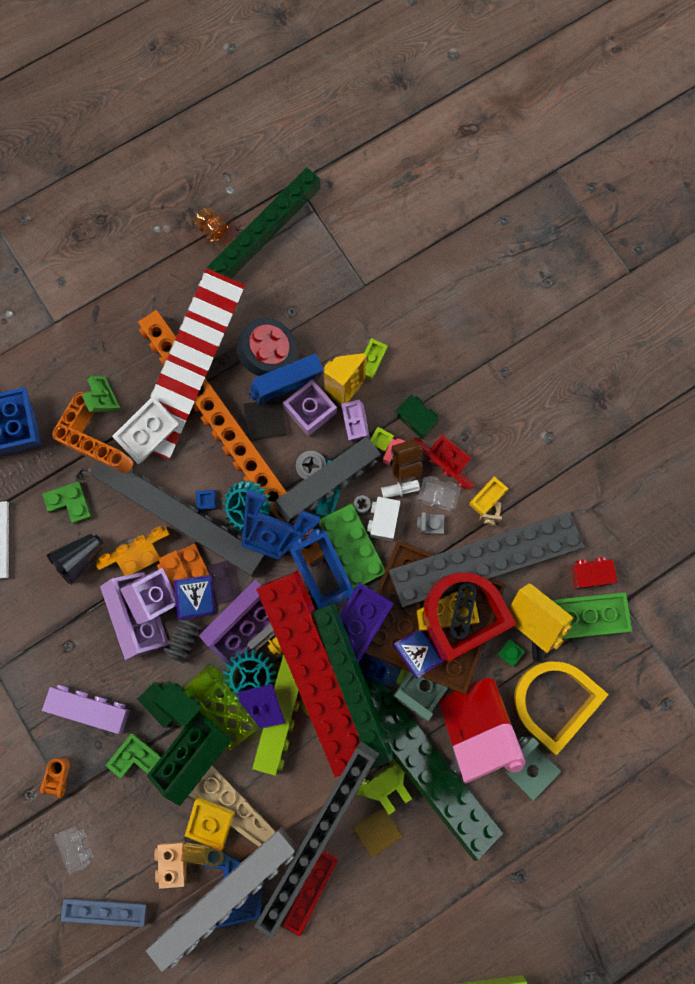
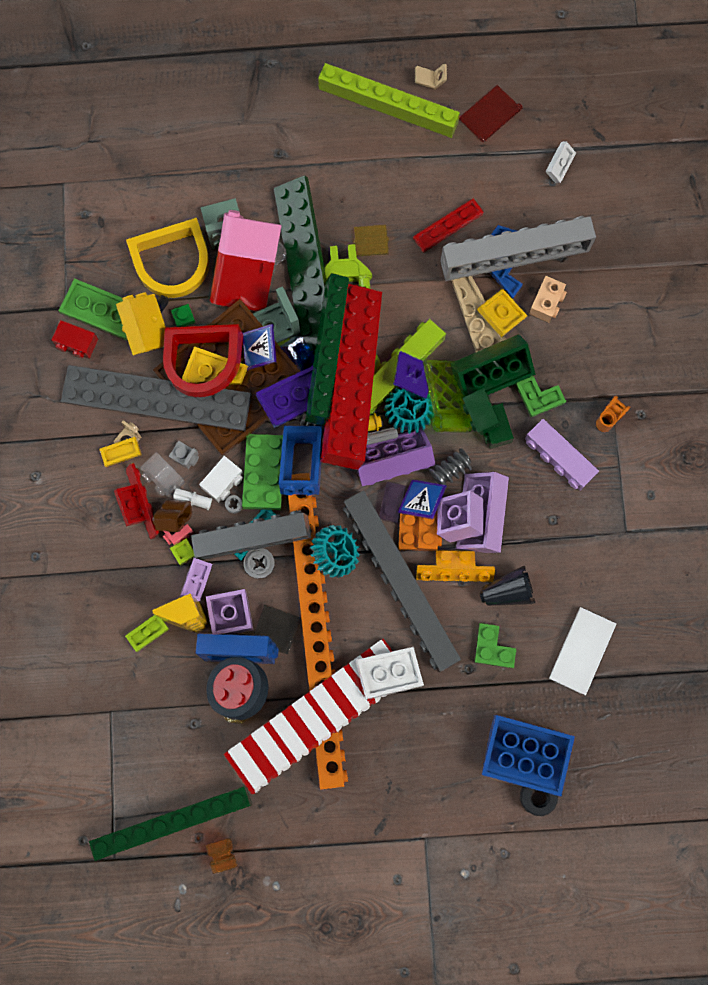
camera: 150 degrees left, 0 degrees up
(70, 434) = (450, 688): orange beam -> none
(74, 849) = (622, 351): clear bracket -> none
(101, 397) = (413, 727): bright green plate -> none
(104, 912) = (619, 292): sand blue plate -> none
(199, 854) = (520, 290): clear yellow piece -> none
(206, 500) = (368, 583): blue tile -> none
(269, 534) = (327, 511): blue wing -> none
(316, 839) = (418, 250): dark grey brick -> none
(417, 416) = (138, 554): dark green brick -> none
(465, 626) = (207, 346): black beam -> none

